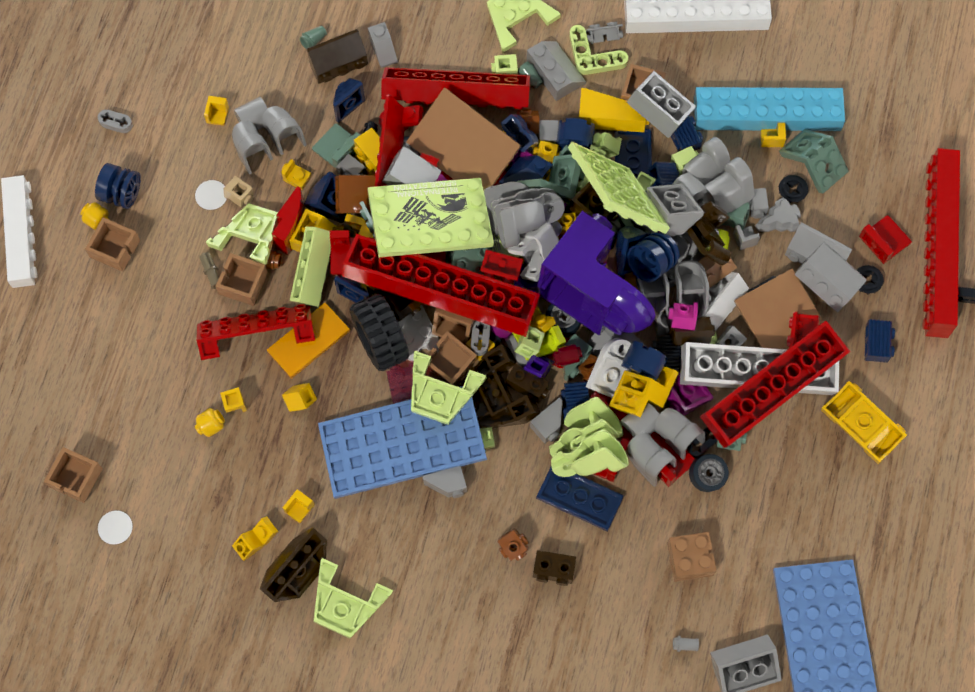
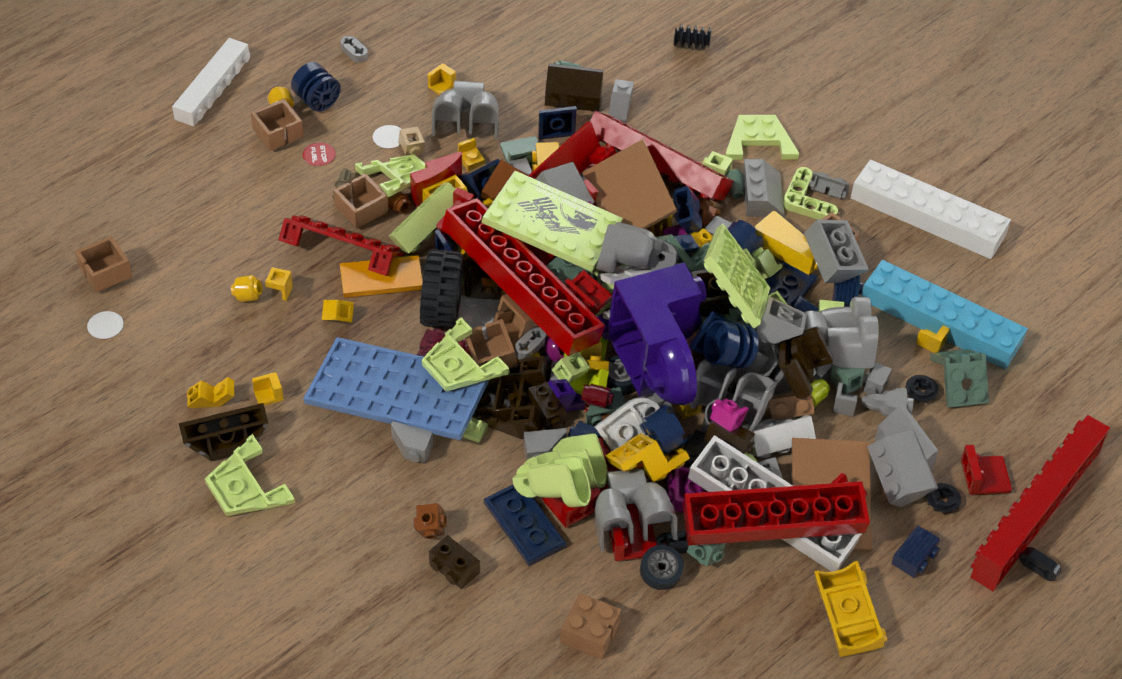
camera: 30 degrees right, 20 degrees down
(165, 248) = (319, 154): none -> sticker

